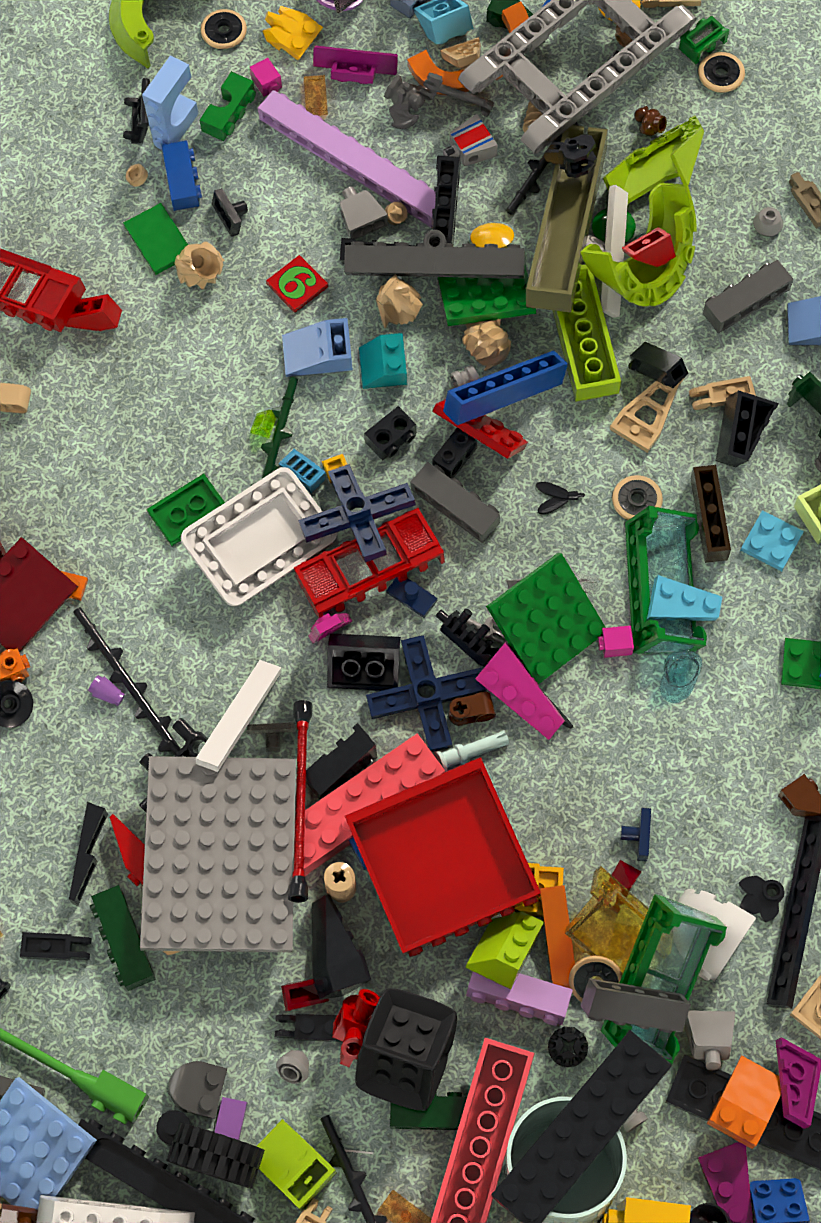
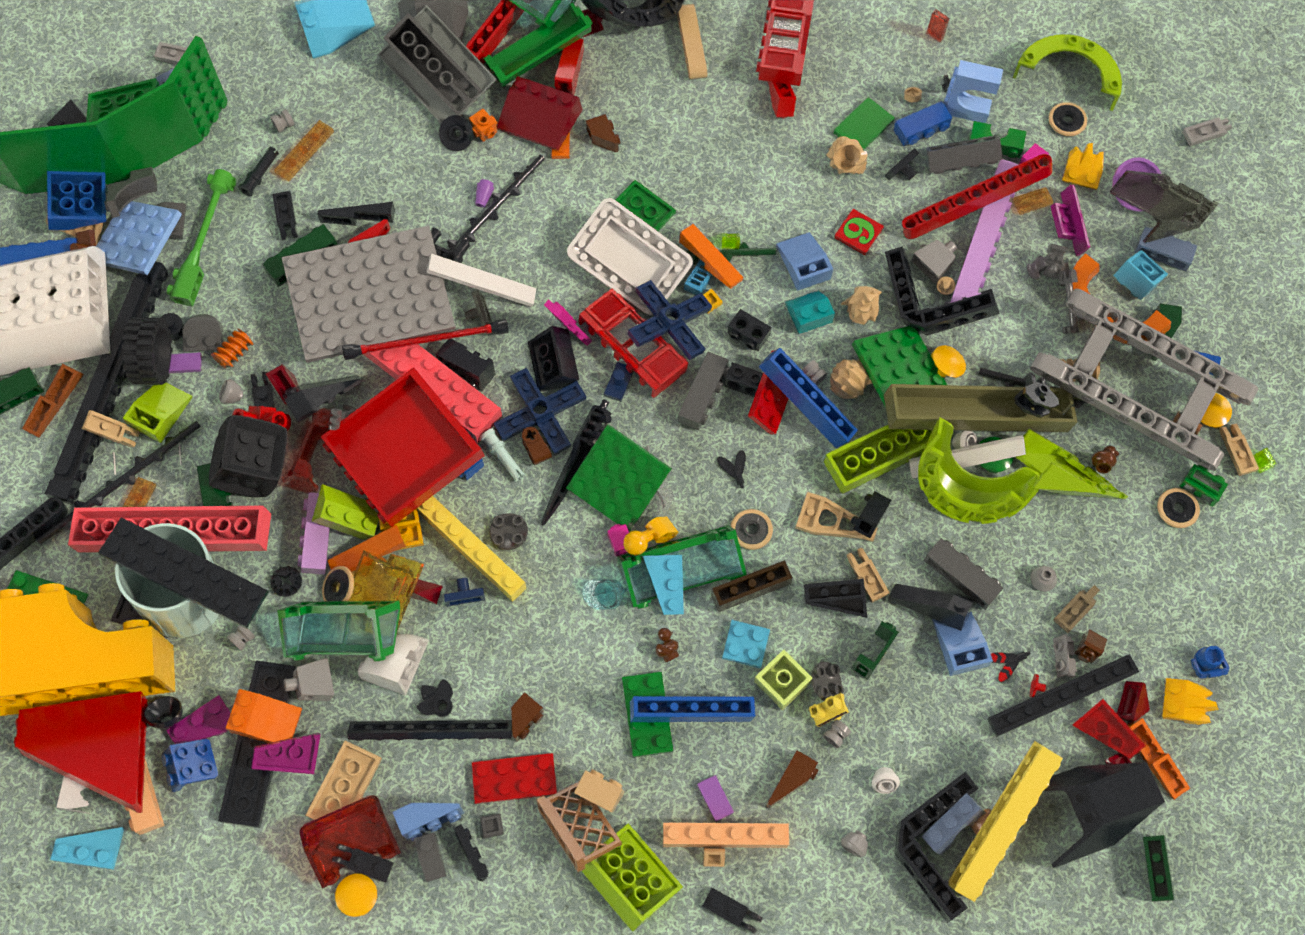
camera: 70 degrees right, 0 degrees up
(59, 118) = (938, 25): none -> clear red tile
(70, 530) = (602, 134): none -> reddish brown slope
(232, 1051) = (232, 348): none -> orange piece
(239, 142) = (964, 153): none -> dark grey brick
(293, 445) = (714, 261): none -> orange slope
(299, 134) = (987, 190): none -> red beam
(341, 890) = (370, 382): tan piece -> none
(381, 921) = (338, 416): none -> dark grey hinge
(391, 973) = (298, 470): none -> clear red windscreen
(434, 261) = (904, 317): dark grey hinge -> none
(462, 54) = (1111, 295): tan wing -> none
(471, 142) = (1031, 324): light grey torso -> none
(515, 687) = (560, 466): dark pink wing -> none
(571, 766) = (508, 531): none -> dark grey dish
(588, 809) = (472, 548): none -> light yellow brick
(621, 592) = (659, 529): none -> yellow beam
(635, 1005) = (313, 611): dark grey brick -> none
(652, 248) = (974, 481): red slope -> none
(759, 621) = (669, 647): none -> reddish brown animal
(776, 330) = (939, 605): none -> black wedge

